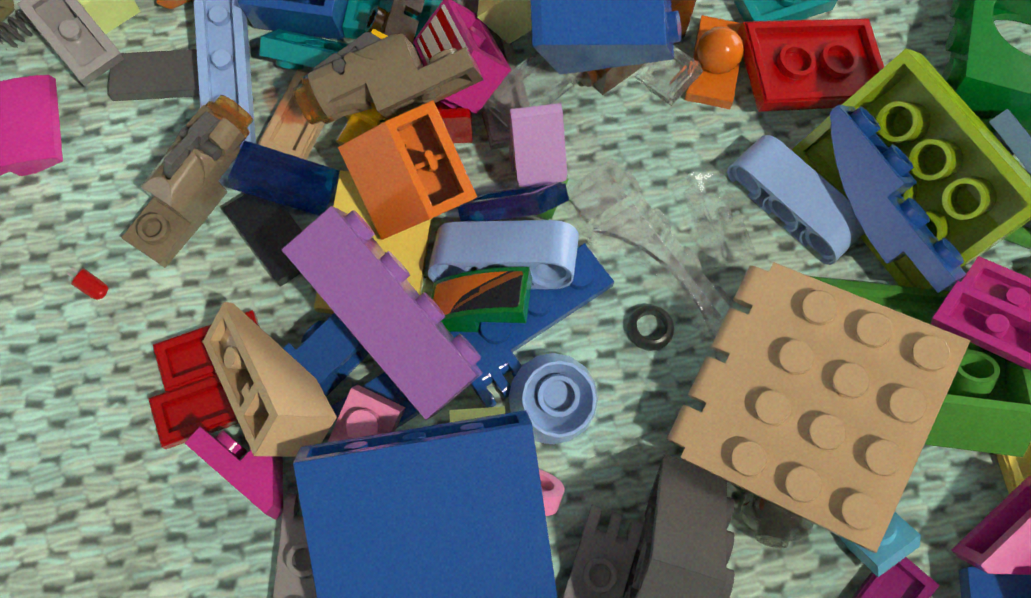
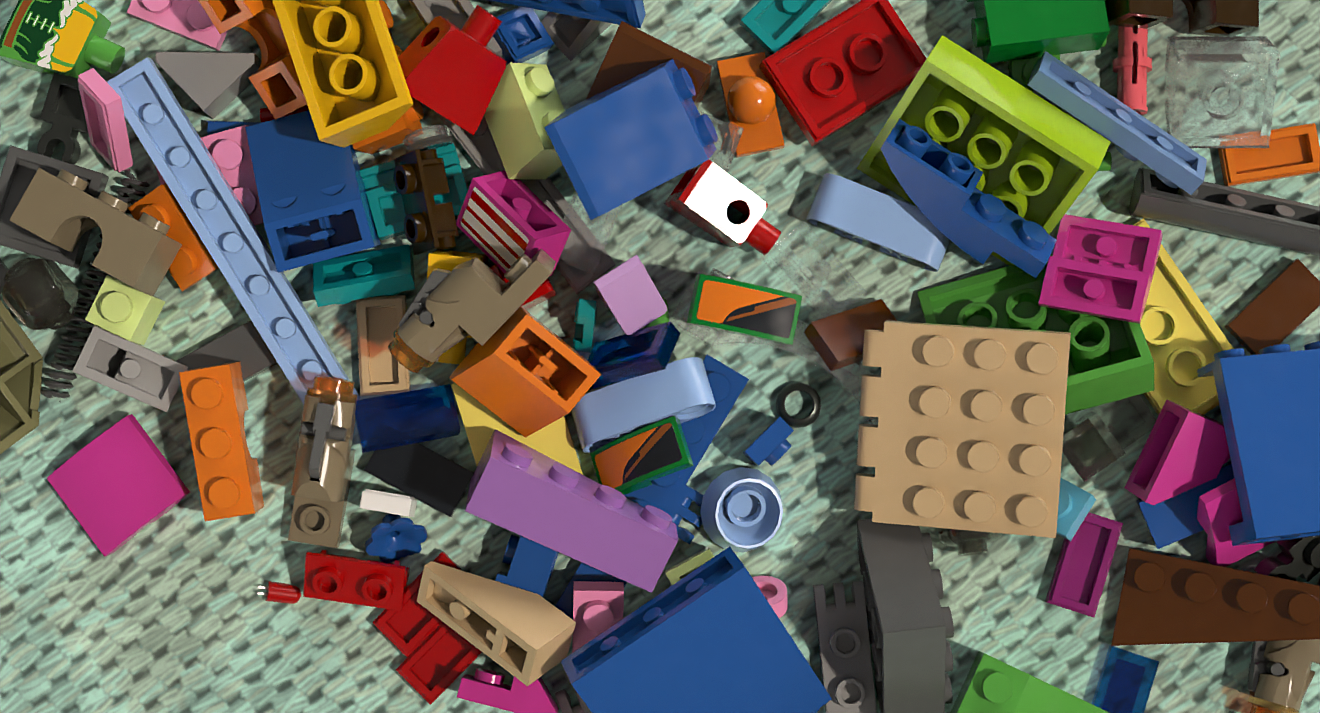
camera: 25 degrees left, 15 degrees up
(97, 147) = (215, 419): none -> orange arch
(158, 296) = (355, 580): none -> red hinge
(215, 278) = (395, 538): none -> blue plant
(227, 242) = (388, 503): none -> white tile
(493, 161) = (585, 325): none -> teal tile
(608, 345) = (770, 444): none -> blue plate
(641, 201) = (744, 309): none -> slope
(655, 116) = (704, 198): none -> torso
(719, 270) = (841, 335): none -> reddish brown tile
(956, 482) = (1104, 433): none -> clear smoke slope

